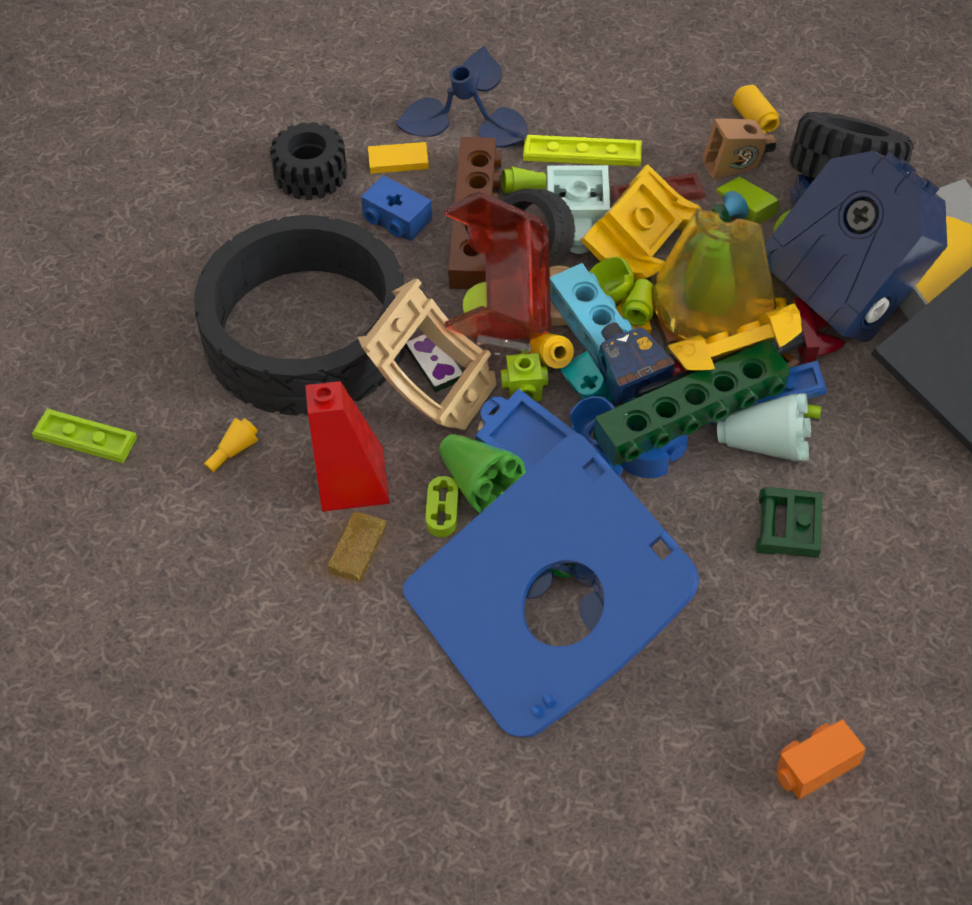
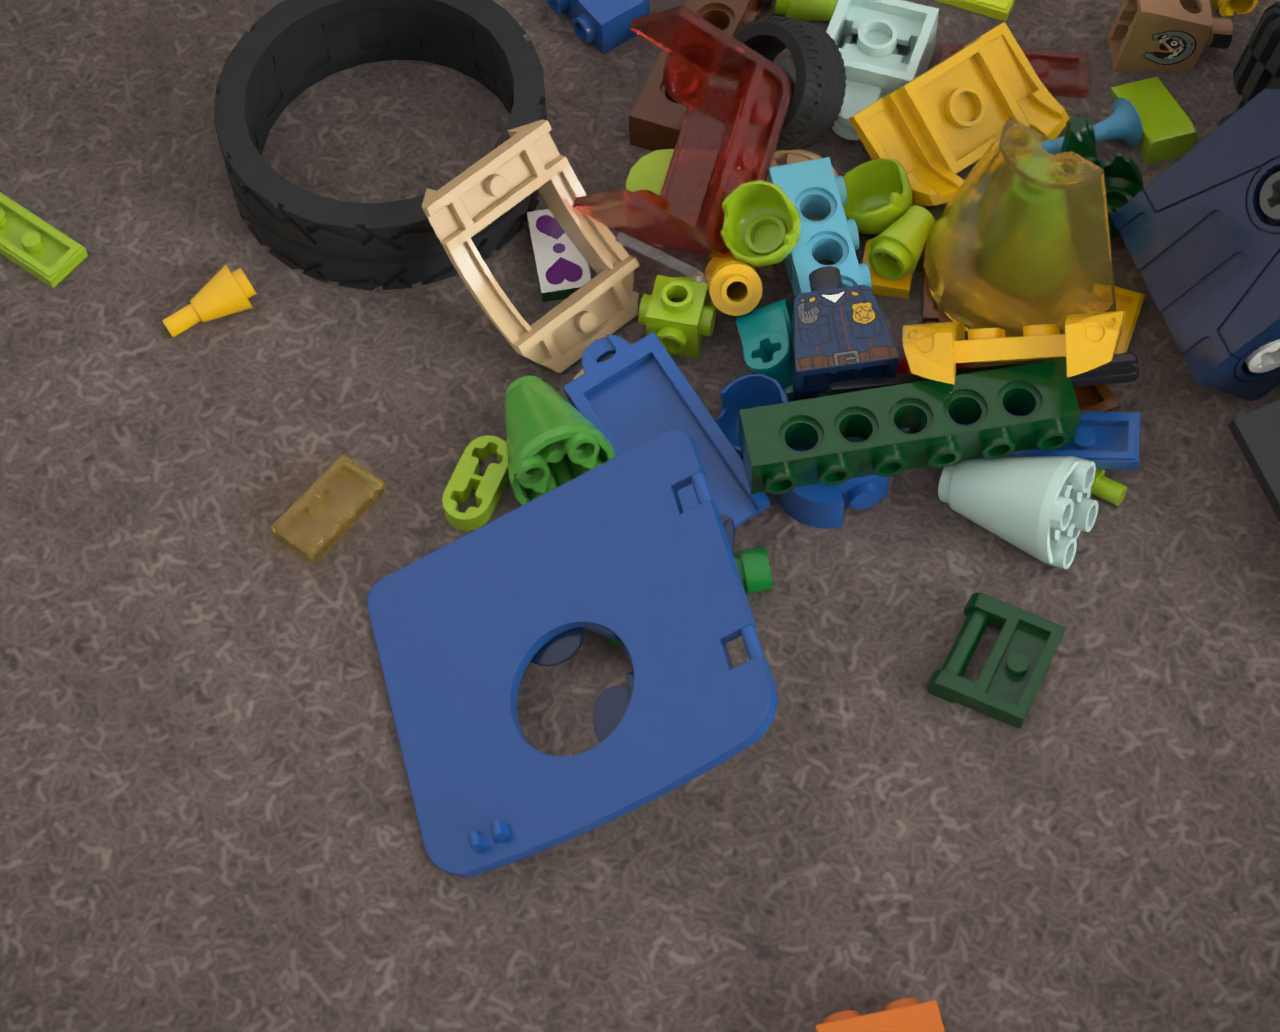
camera: 20 degrees right, 5 degrees up
(344, 450) = (352, 357): red slope -> none
(560, 309) = (760, 223): none -> lime hair
(815, 342) = (1157, 380): dark red tile -> none

